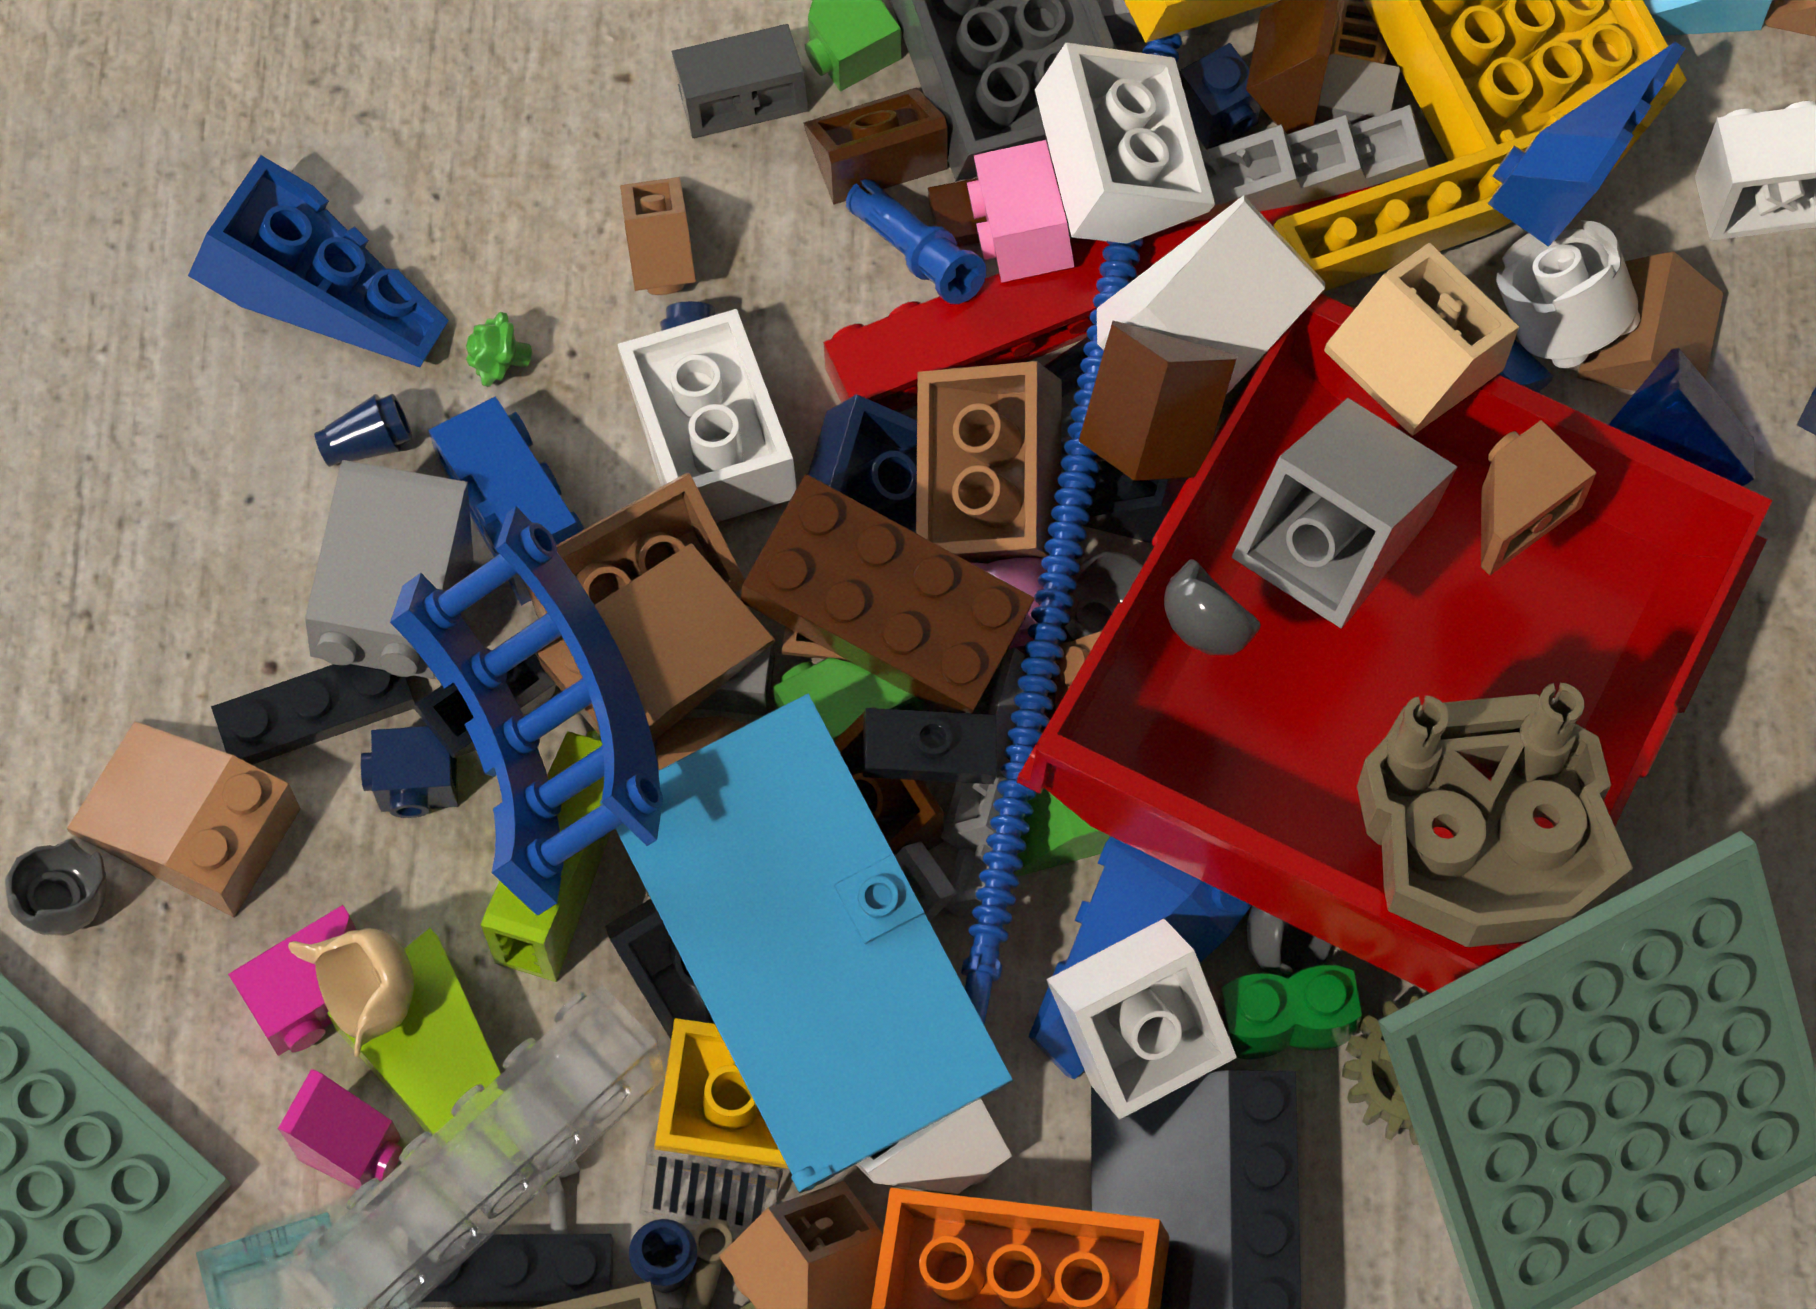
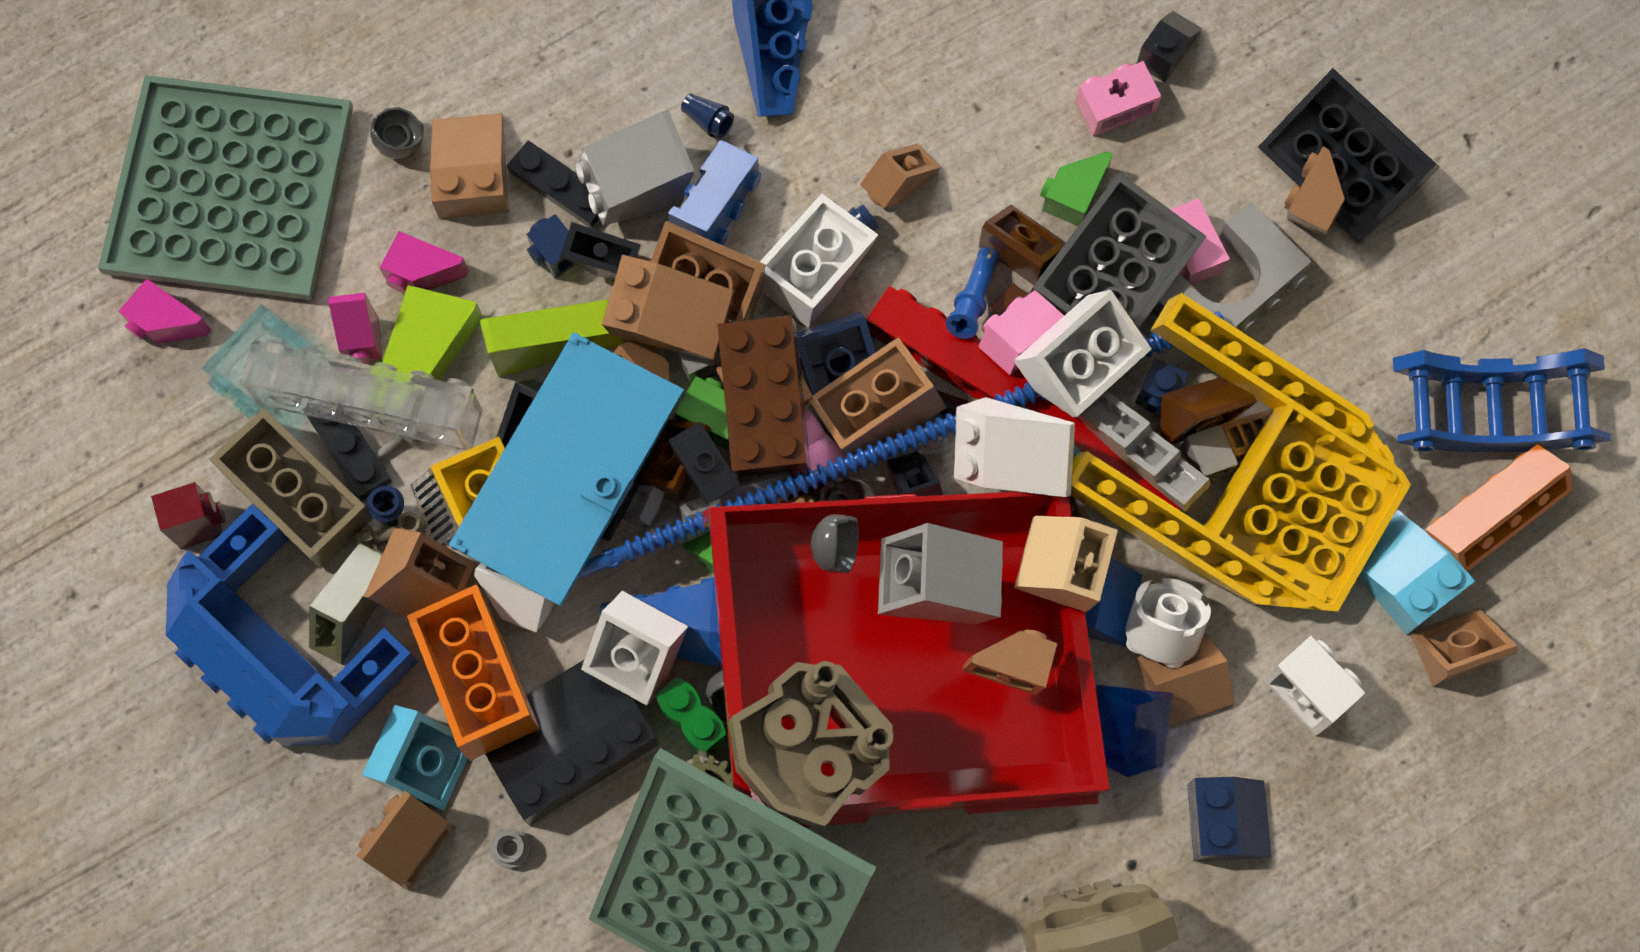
camera: 55 degrees right, 5 degrees up
(362, 981) = (426, 289): tan hair -> none
(494, 349) = (788, 143): bright green plant -> none
(526, 822) = (579, 270): blue fence -> none
(740, 80) = (1008, 160): dark grey hinge -> none
(1155, 403) = (945, 455): reddish brown slope -> none
(1576, 153) = (1233, 574): blue wedge -> none

